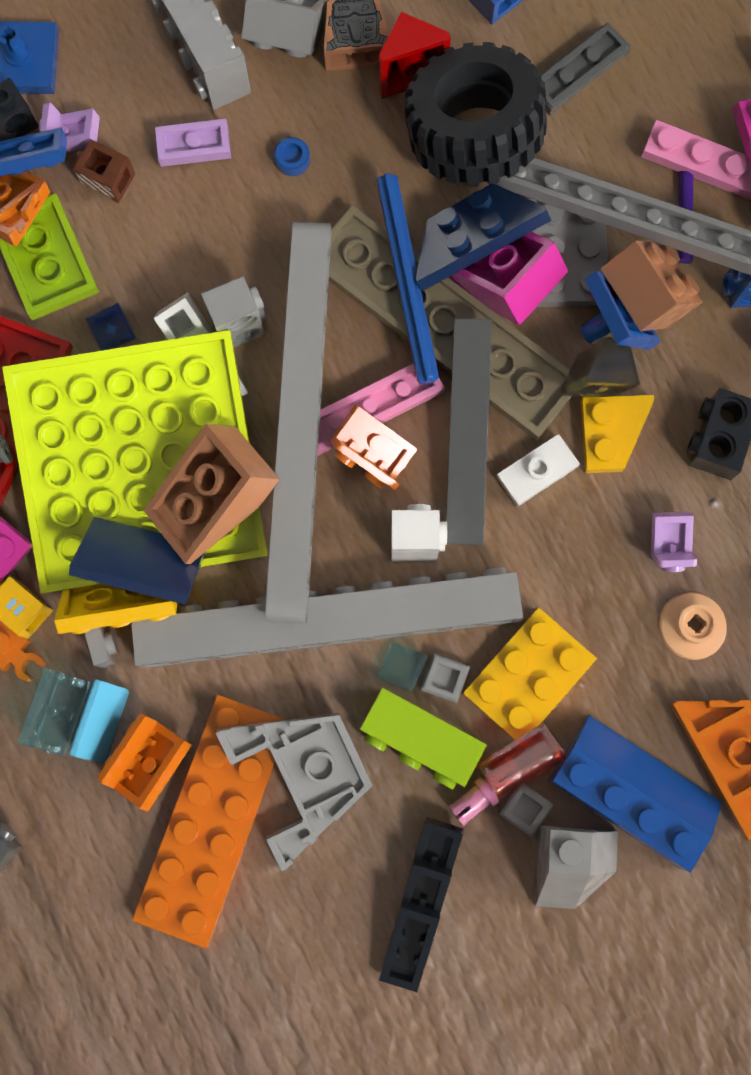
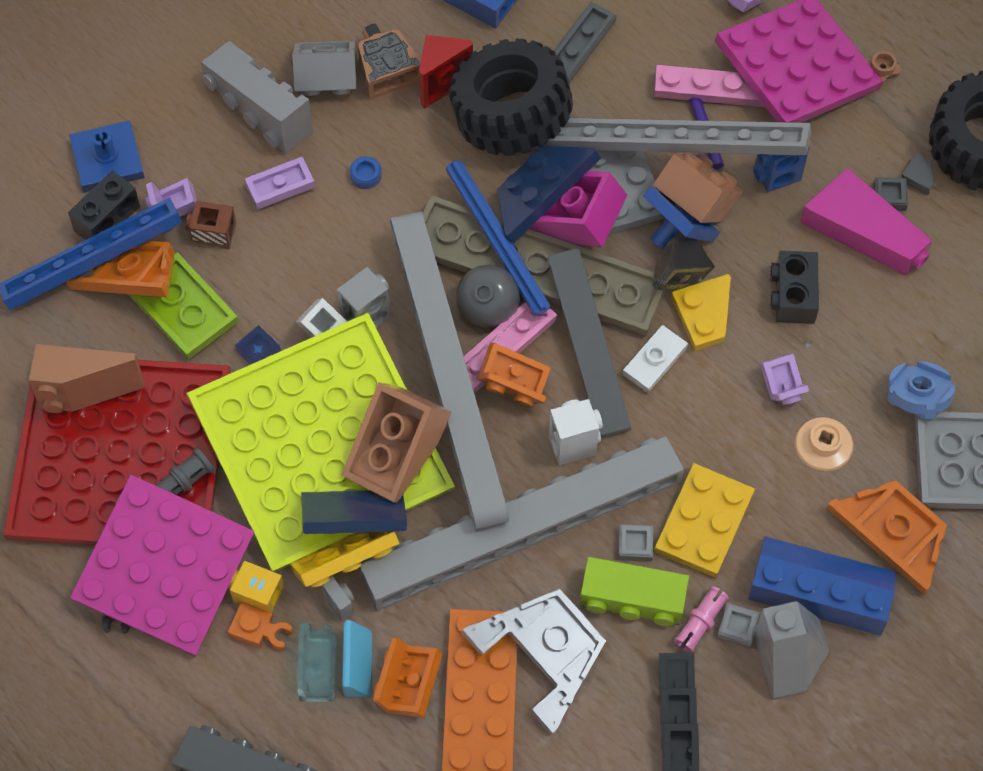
camera: 20 degrees left, 15 degrees down
(374, 344) = (488, 296): none -> dark grey cylinder
(402, 666) = (597, 542): clear light blue slope -> none
(521, 760) = (721, 581): clear red tile -> none

